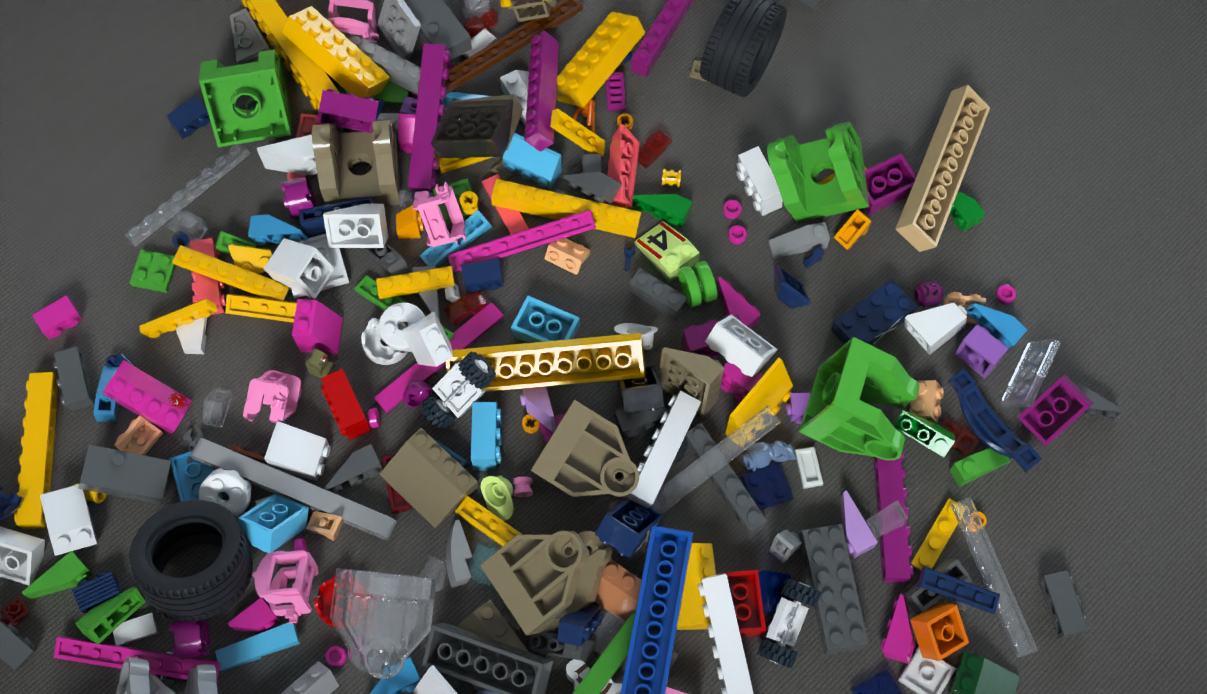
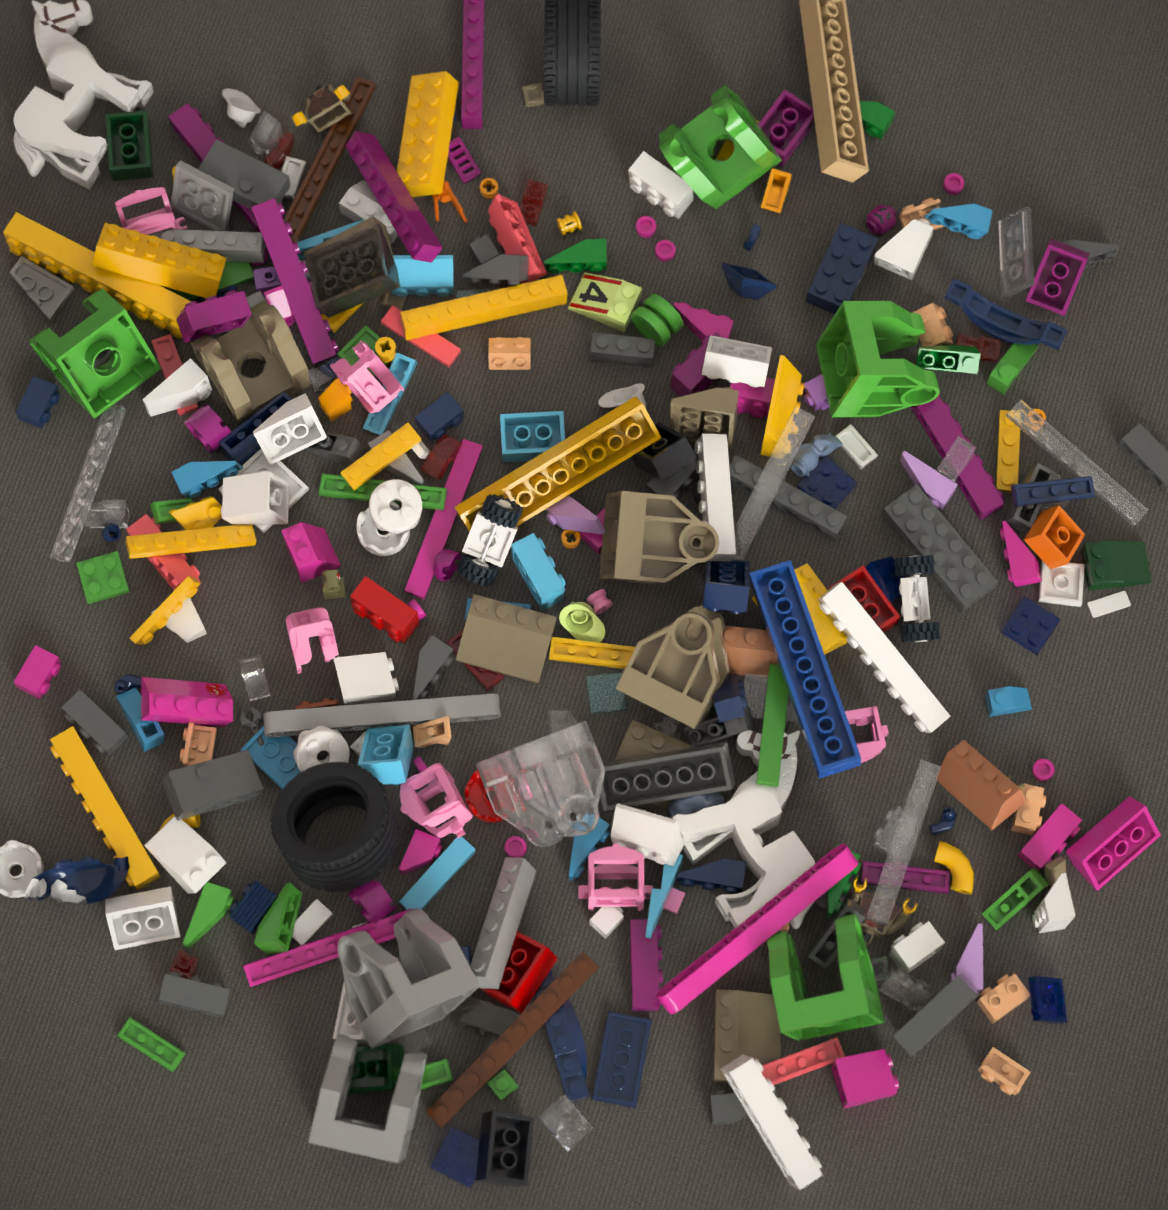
camera: 30 degrees left, 5 degrees up
(260, 307) = (241, 558): yellow plate -> none
(428, 341) = (434, 507): white slope -> none
(457, 556) = (575, 695): light grey slope -> none
(523, 240) = (461, 362): dark pink tile -> none
(577, 133) = (454, 224): yellow plate -> none
(628, 253) = (570, 324): dark blue hand -> none
(785, 545) = (875, 531): light grey slope -> none
(800, 240) = (730, 226): light grey slope -> none
(981, 351) = (960, 252): medium lavender brick -> none

